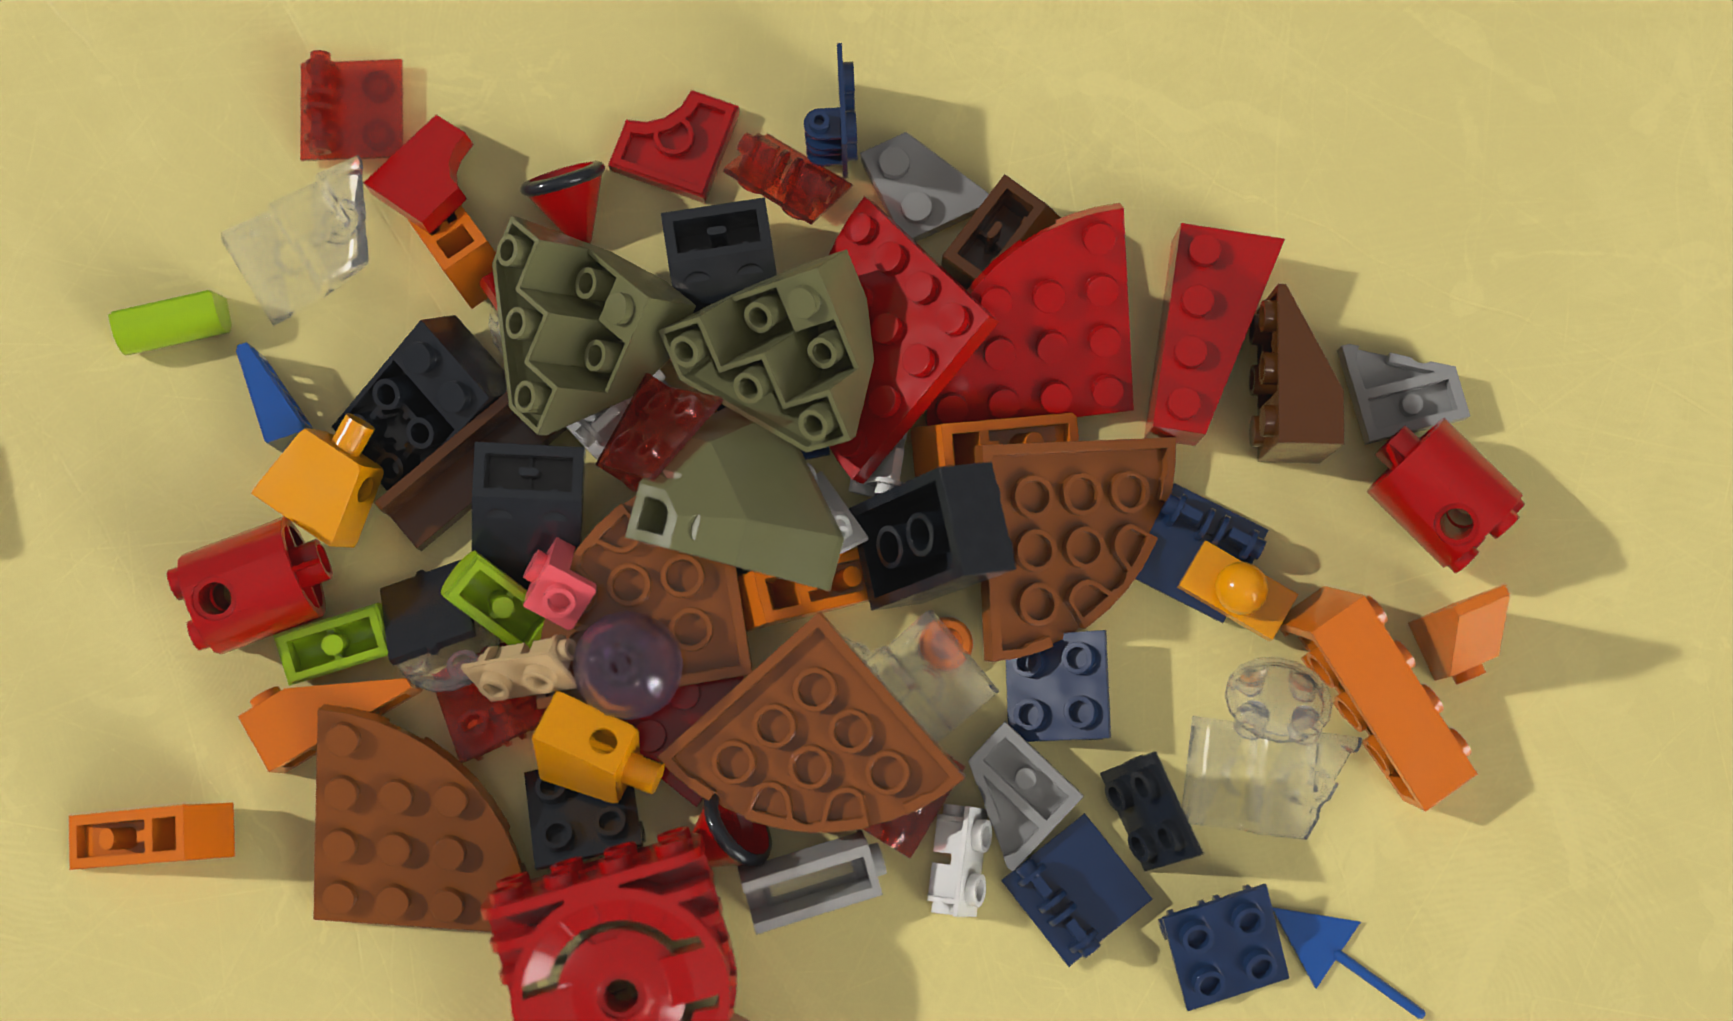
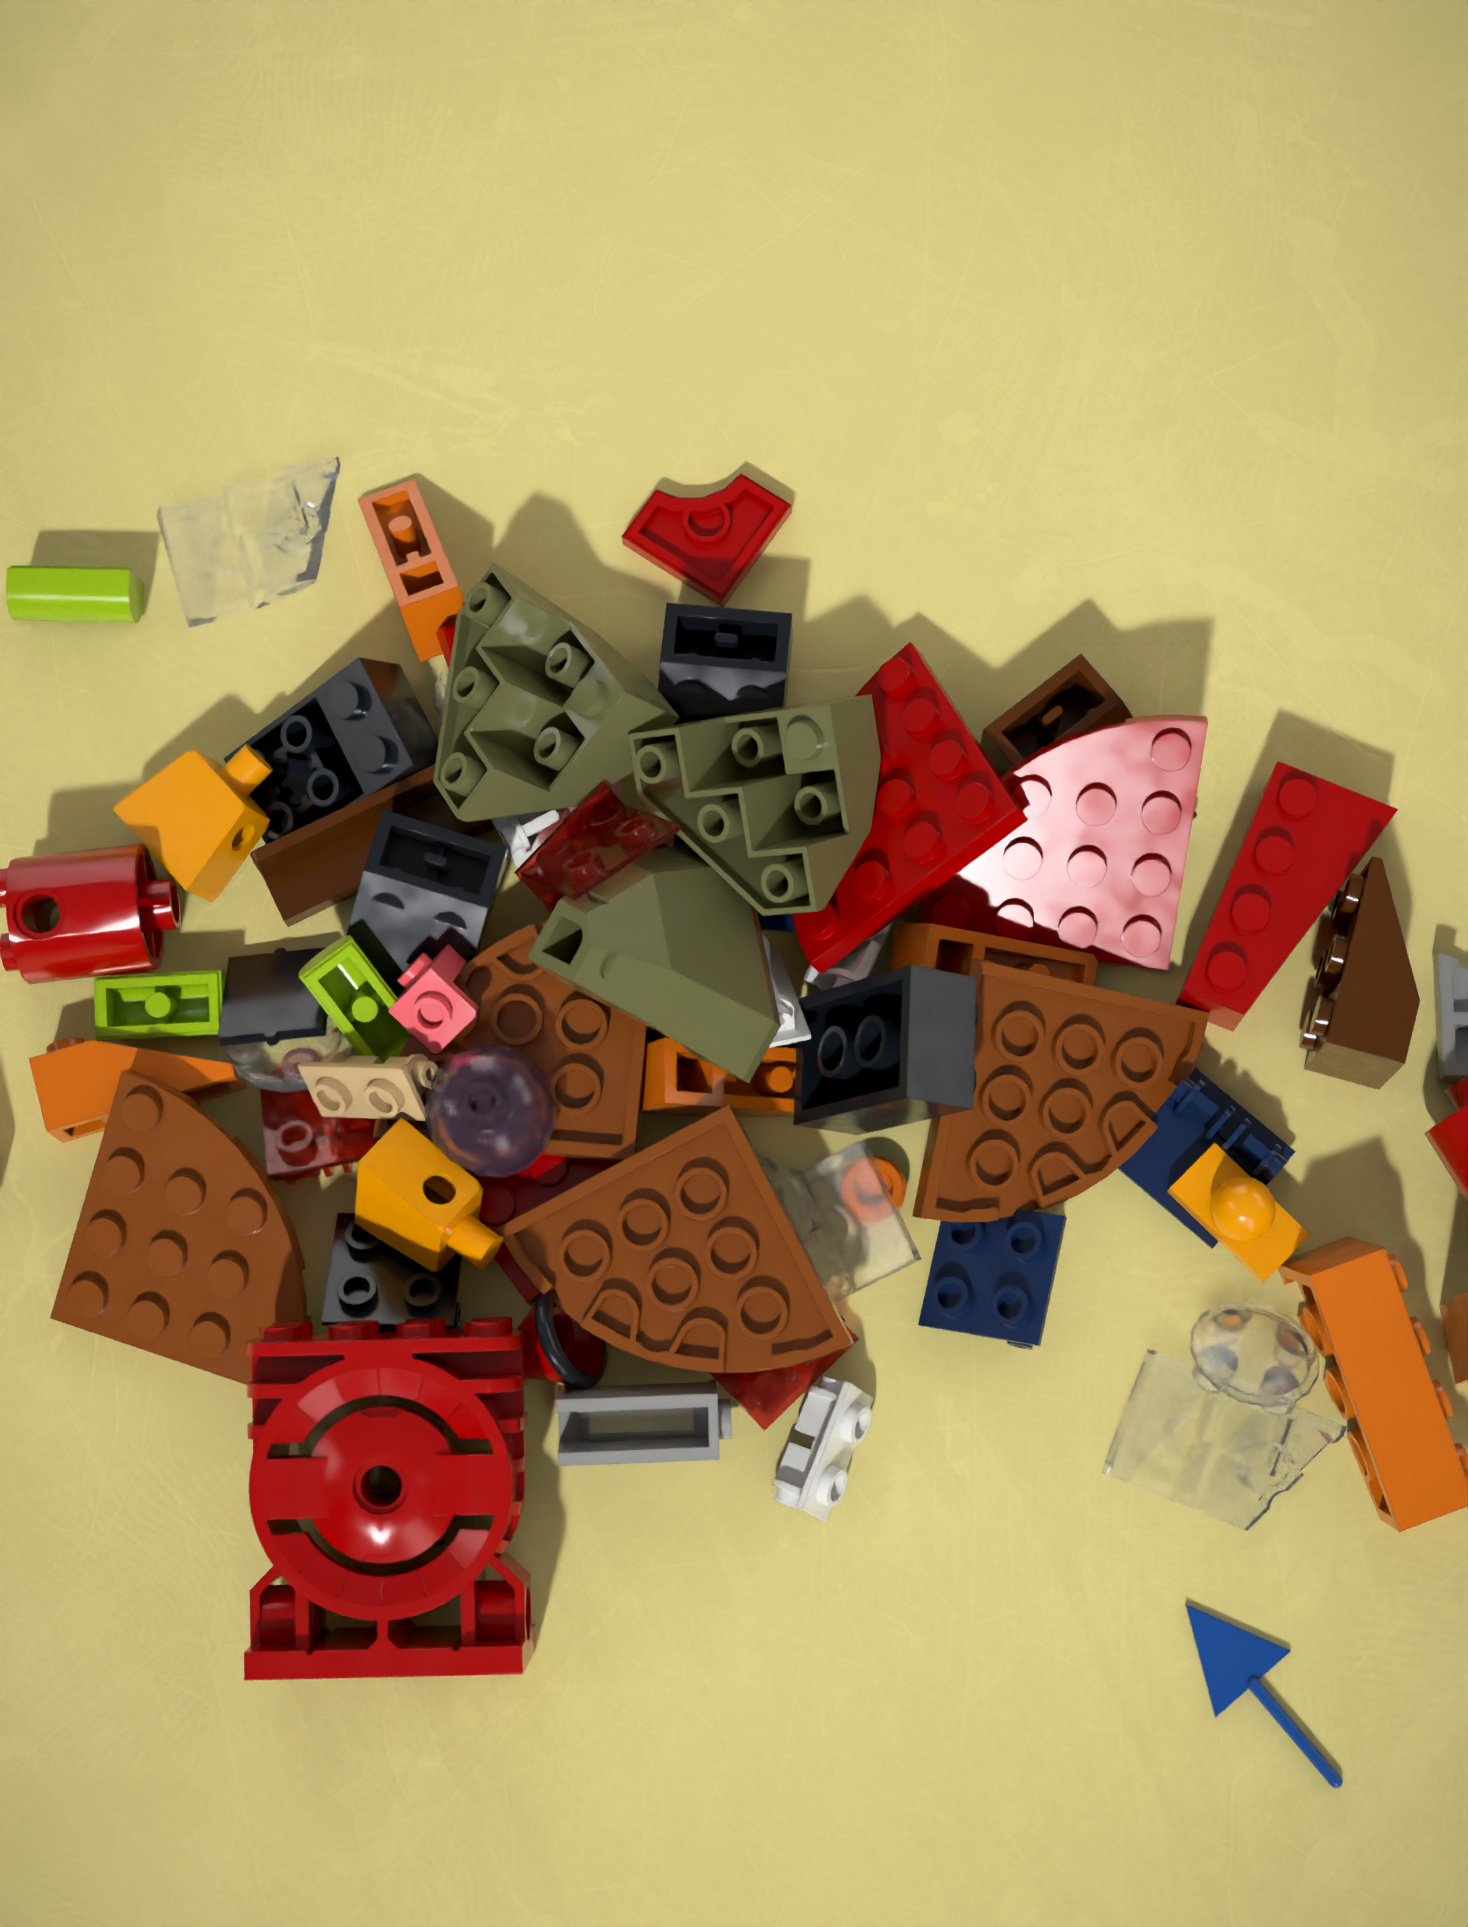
camera: 20 degrees right, 5 degrees down
(274, 406) = (165, 717): blue slope -> none
(350, 108) = (343, 402): clear red hinge -> none
(423, 175) = (406, 495): red tile -> none
(568, 197) = (566, 562): red hat -> none
(786, 177) = (824, 597): clear red hinge -> none
(833, 131) = (891, 556): dark blue hinge -> none
(920, 187) = (979, 647): light grey wing -> none
(1020, 793) = (915, 1386): light grey wing -> none
(1076, 890) = (954, 1520): dark blue hinge -> none
(1150, 812) = (1064, 1446): black hinge -> none
(1225, 946) = (1116, 1634): dark blue hinge -> none

